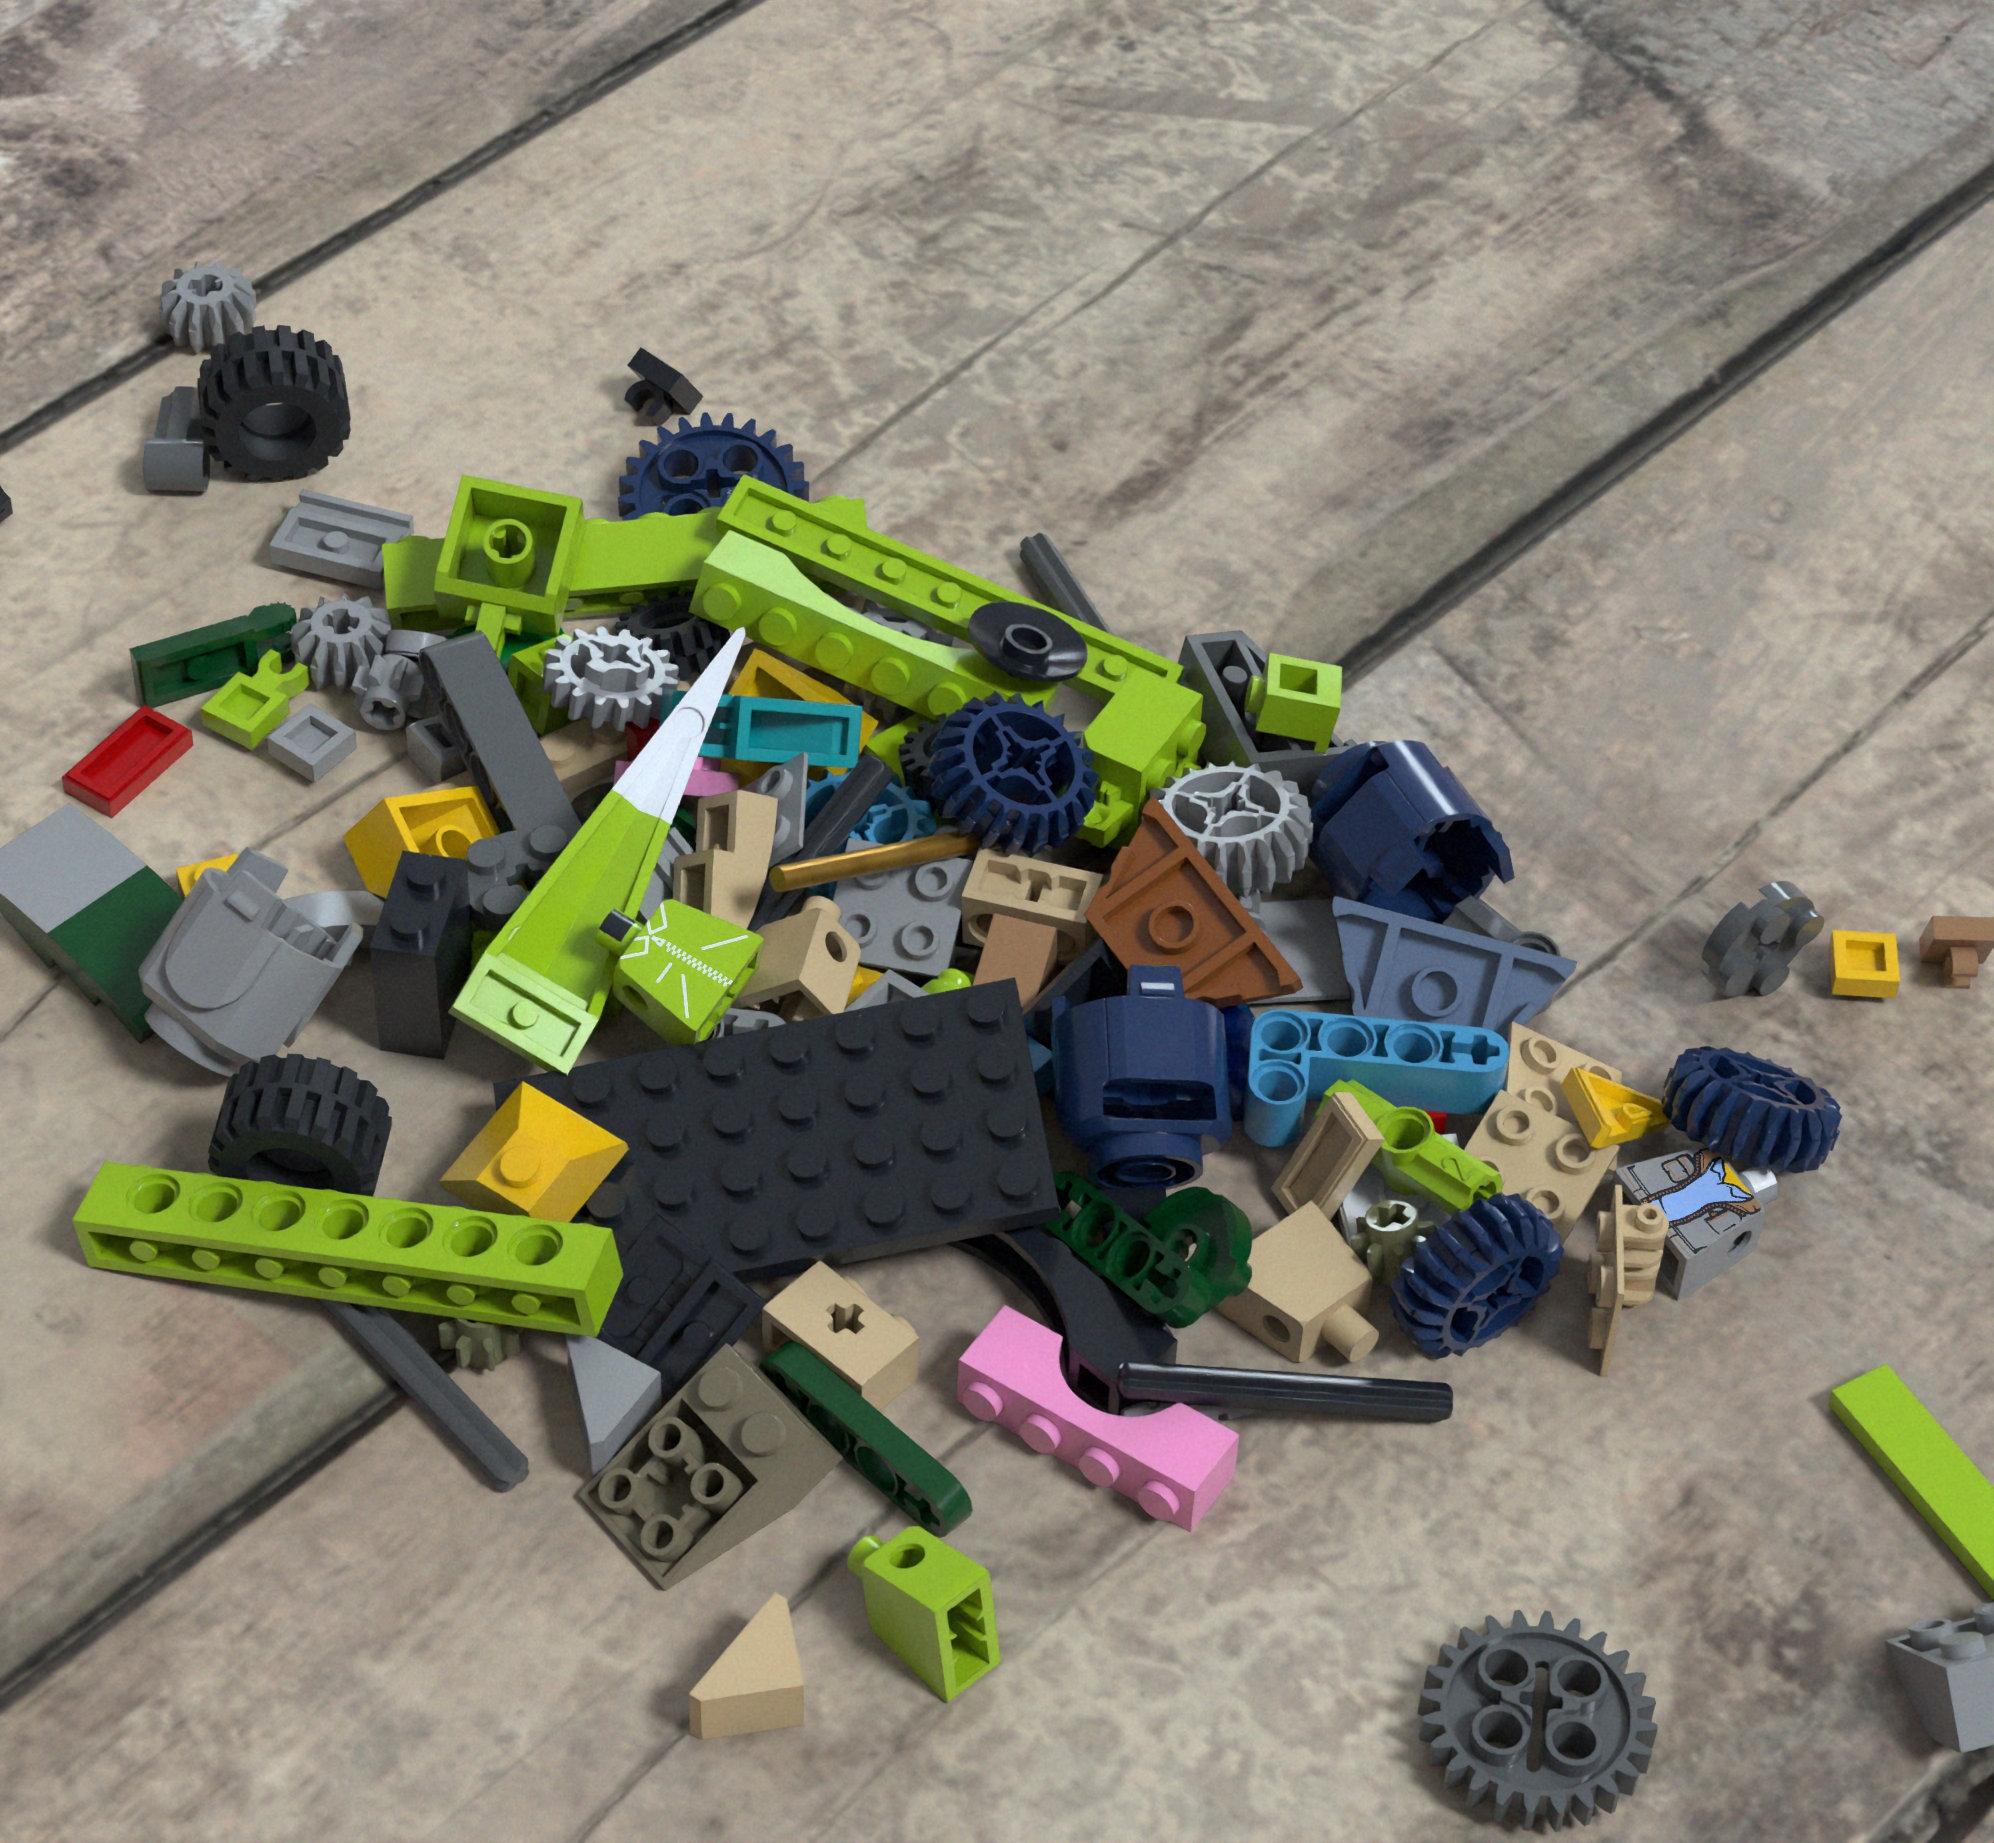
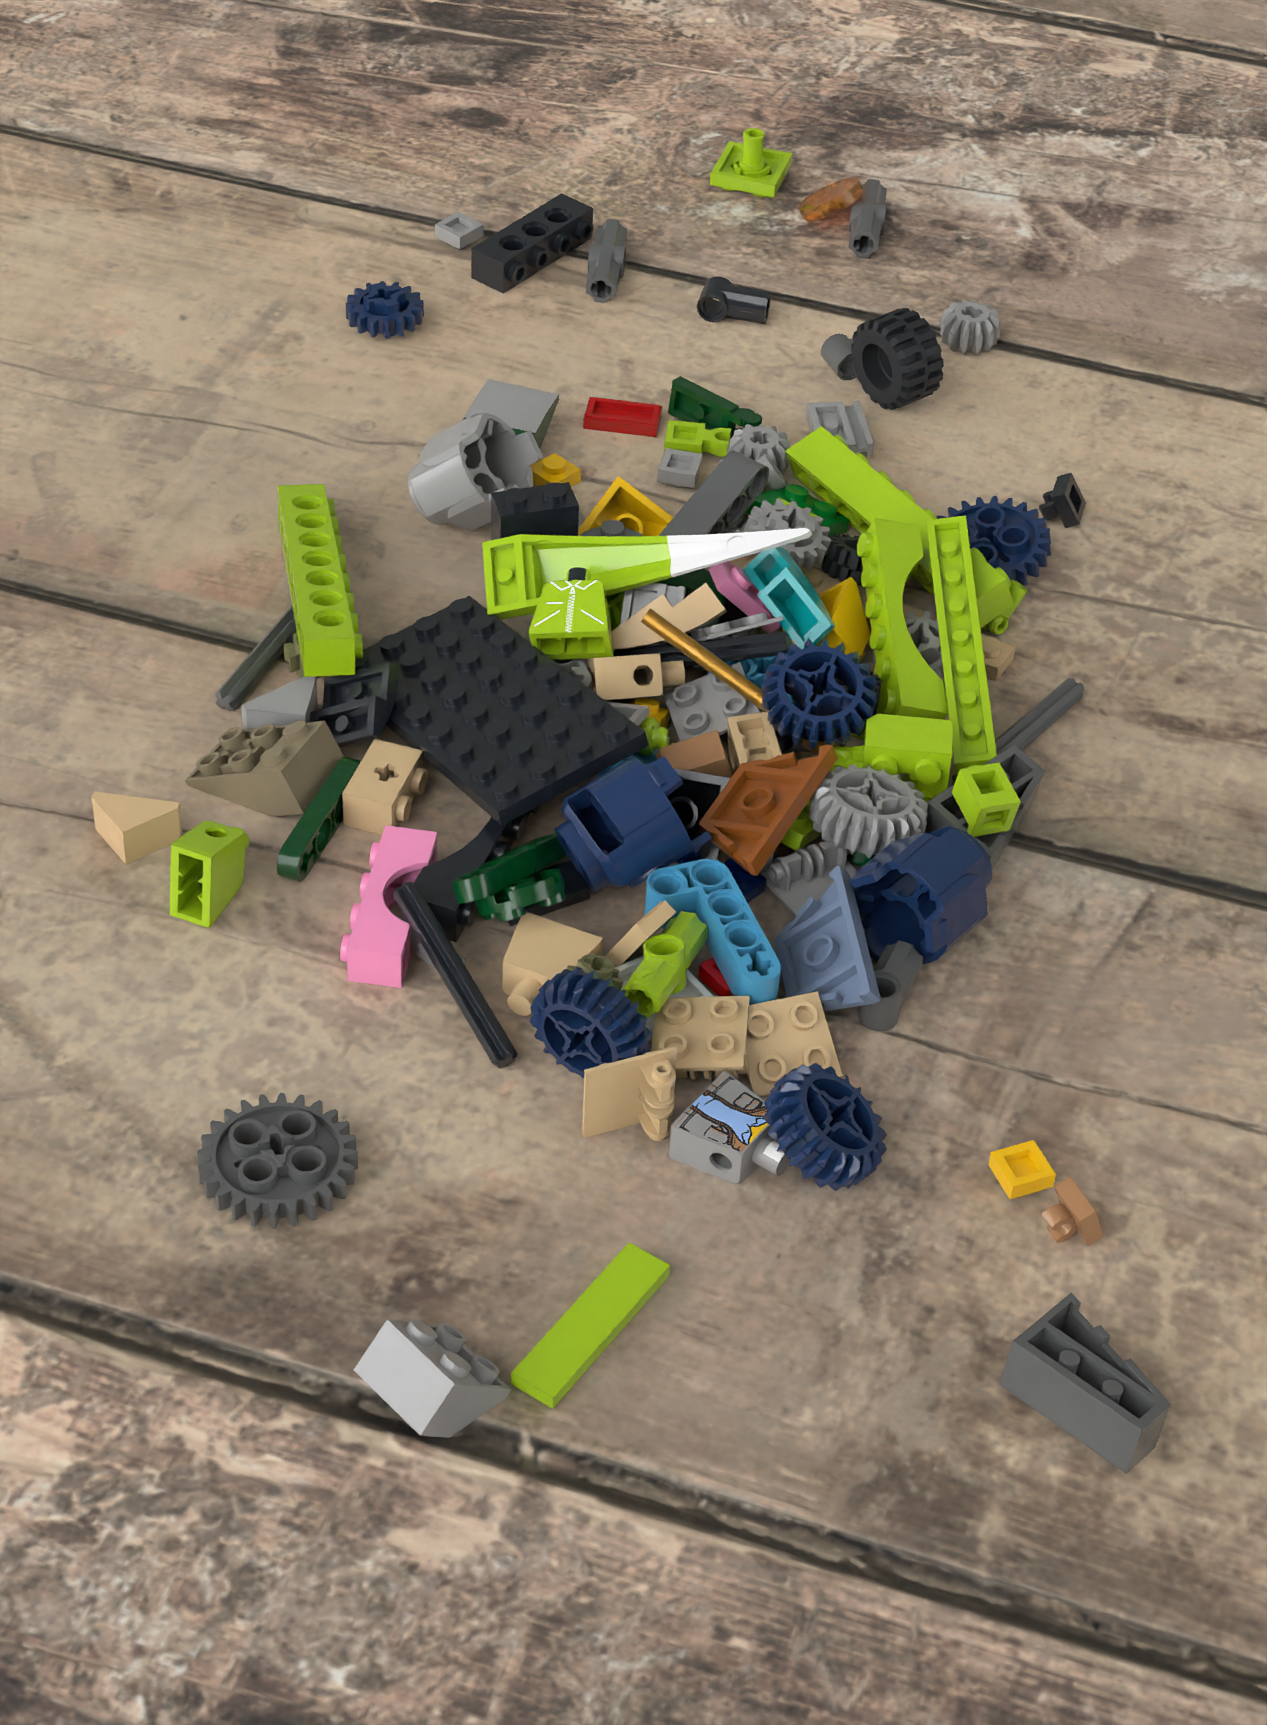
camera: 65 degrees right, 5 degrees down
(301, 1126) = (376, 536): black tyre -> none
(475, 567) = (829, 462): lime hinge -> none
(534, 1159) = (409, 619): yellow slope -> none
(1027, 642) = (940, 674): black dish -> none
(1610, 1110) = (767, 1051): yellow tile -> none
(1758, 943) = (980, 1116): dark grey plate -> none

